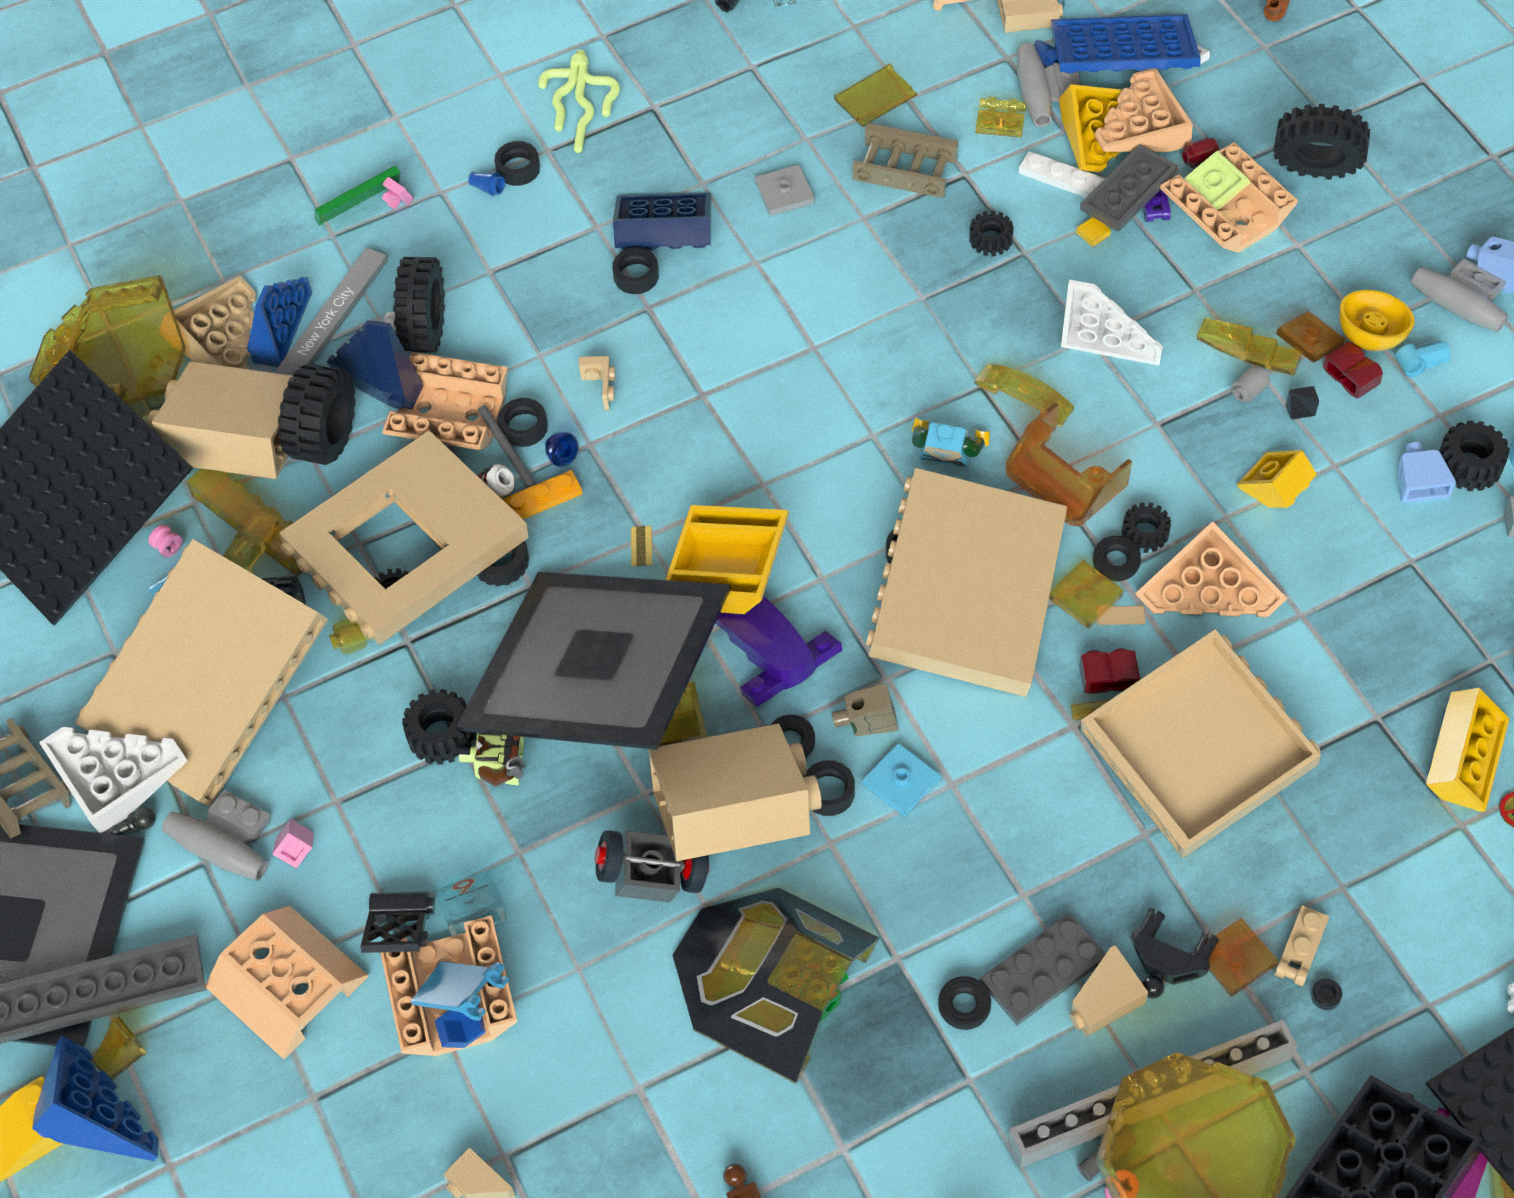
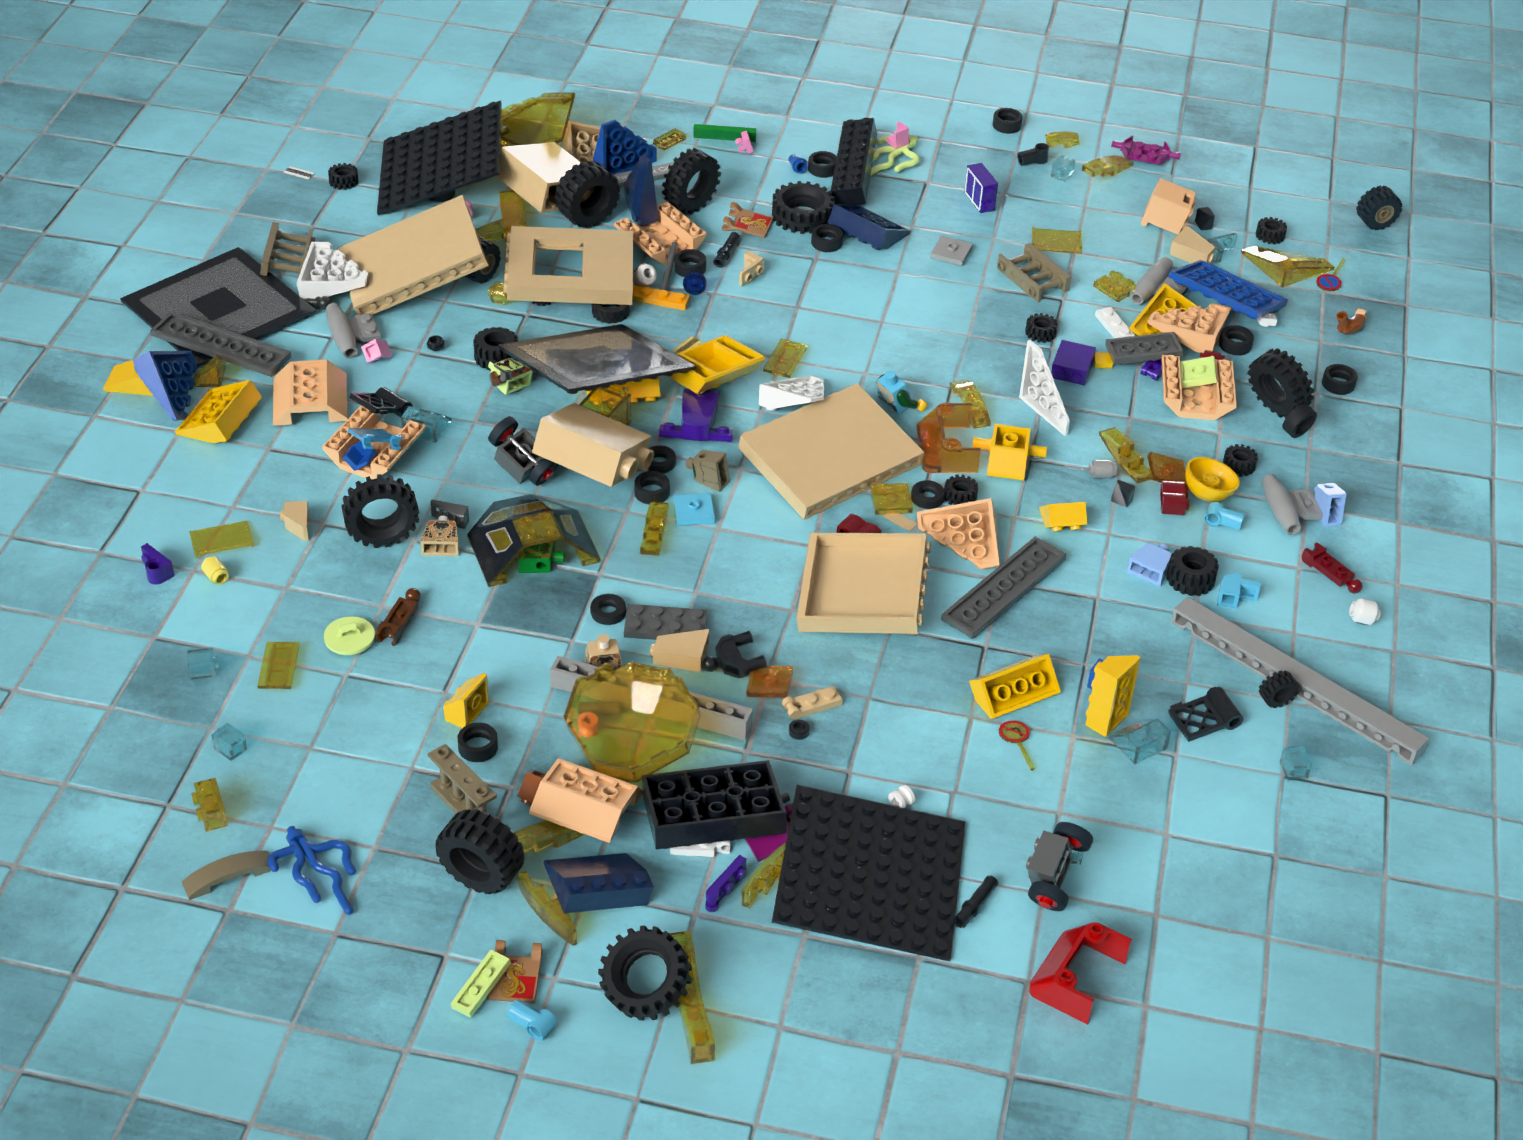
camera: 35 degrees right, 15 degrees down
(197, 1099) = (220, 412): none -> yellow slope
(295, 249) = (669, 139): none -> clear yellow tile
(350, 773) = (435, 343): none -> black plate
(520, 310) = (747, 221): none -> medium nougat flag
(543, 377) = (720, 258): none -> black pin
(557, 138) = (854, 162): none -> black brick
(559, 223) = (806, 196): none -> black tyre
(571, 65) = (900, 137): none -> bright pink panel
(594, 1097) = (386, 529): none -> black tyre
(651, 1015) = (453, 511): none -> dark grey slope
(676, 1061) = (440, 538): none -> tan torso
(736, 79) = (981, 187): none -> dark purple brick
(771, 480) = (785, 358): none -> clear yellow piece
(851, 528) = (791, 392): none -> white slope
(892, 844) = (654, 528): none -> clear yellow slope
(1048, 1081) = (603, 651): none -> tan torso
(1073, 256) = (1073, 362): none -> dark purple brick
(1139, 432) = (1009, 451): none -> yellow slope
(1199, 94) = (1233, 347): none -> black tyre
(1321, 626) = (1003, 587): none -> dark grey plate
(1341, 74) = (1339, 387): none -> black tyre
(1363, 258) = (1241, 459): none -> black tyre
(1370, 177) = (1299, 420): none -> black tyre

